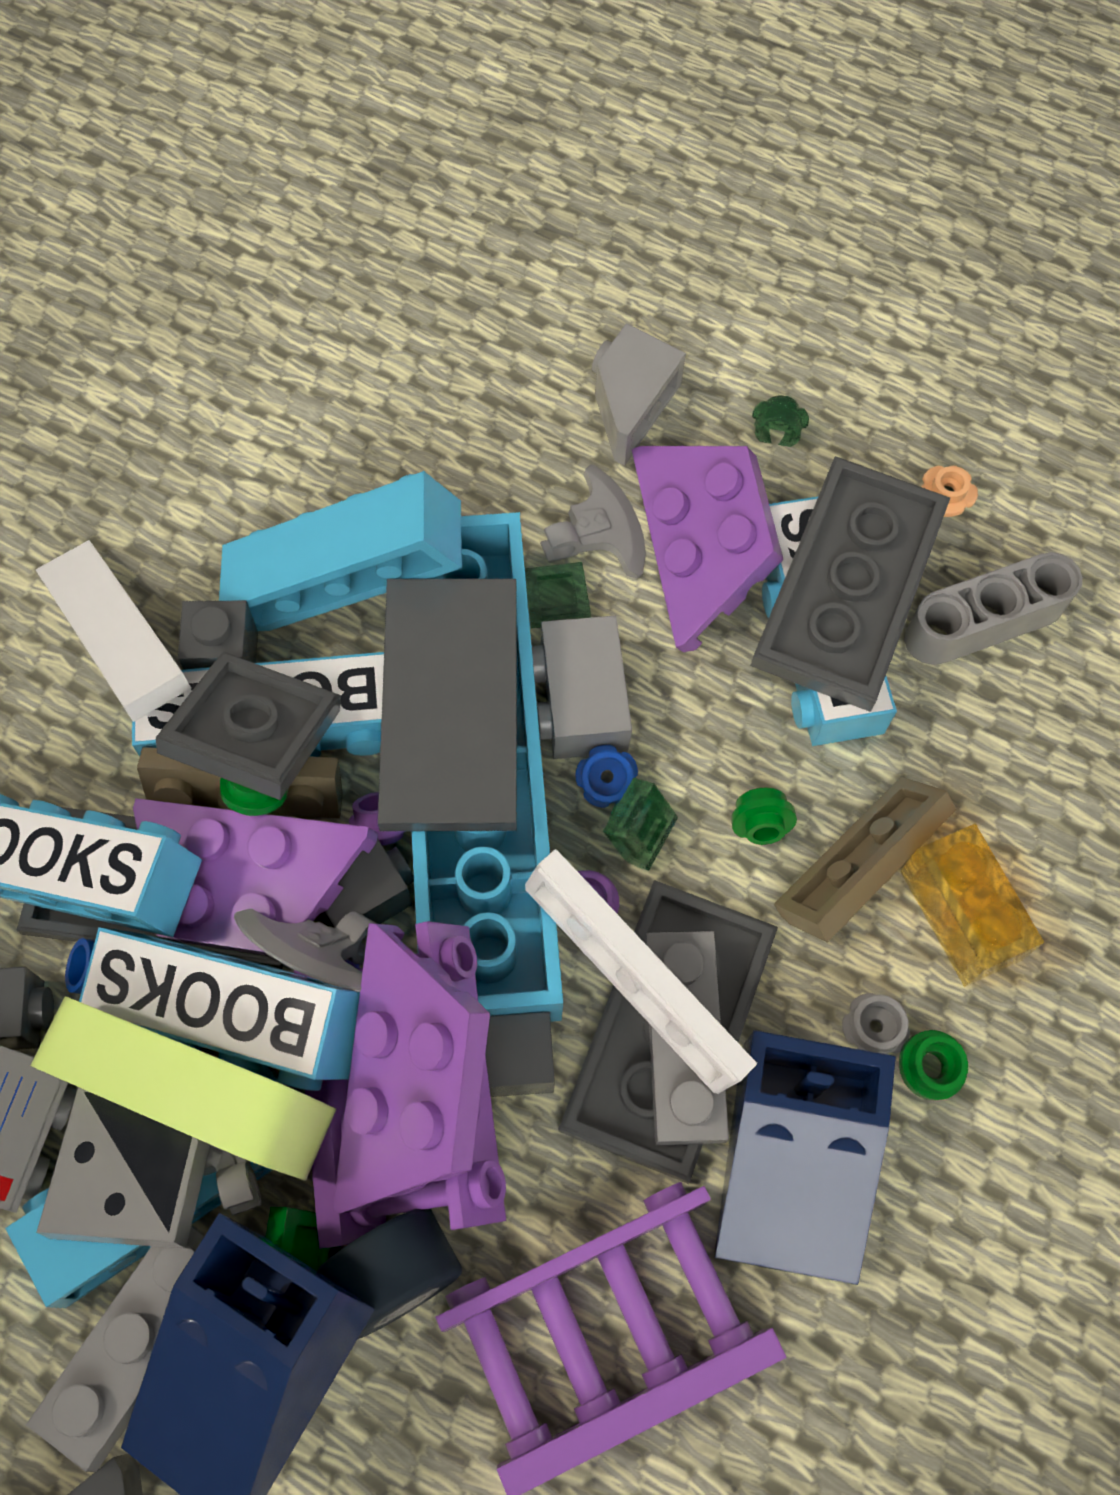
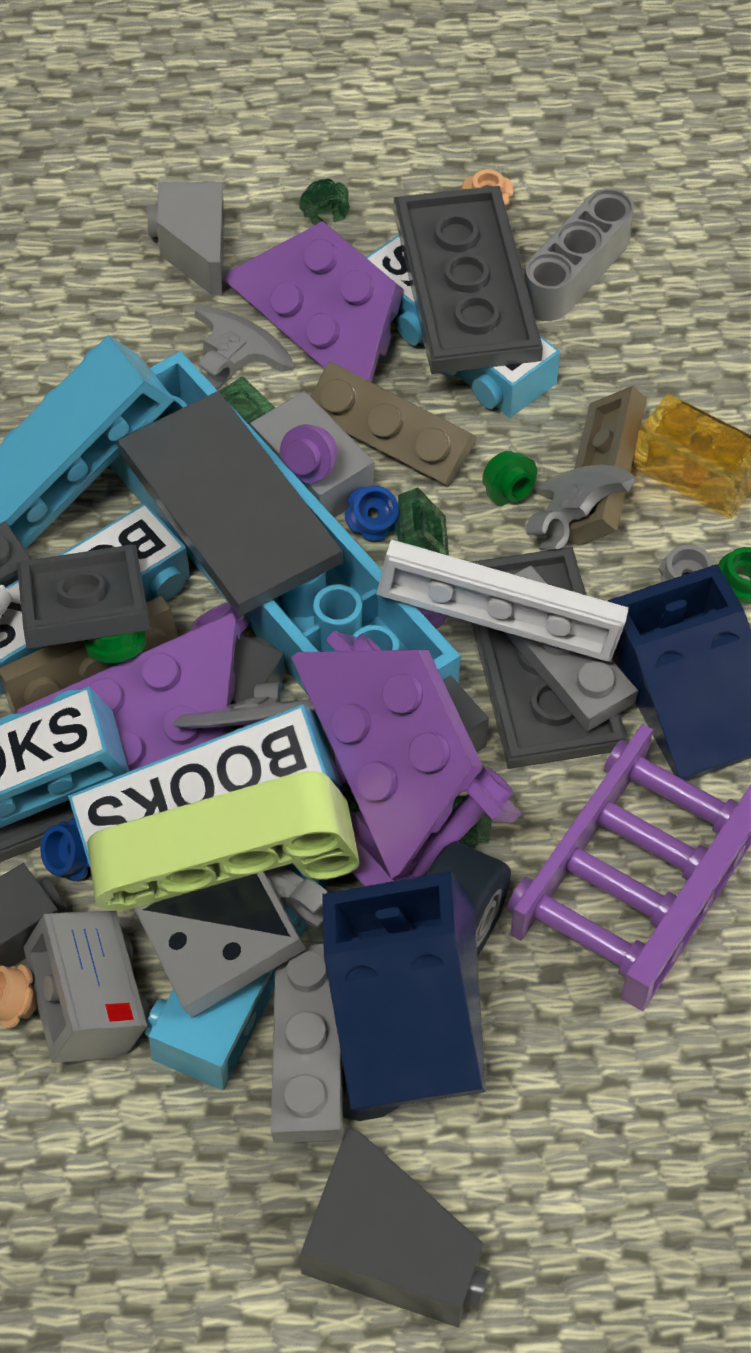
camera: 30 degrees left, 10 degrees down
(565, 691) = (308, 452): none -> medium lavender plate
(686, 692) = (393, 424): none -> dark tan plate
(816, 876) = (573, 497): none -> light grey piece

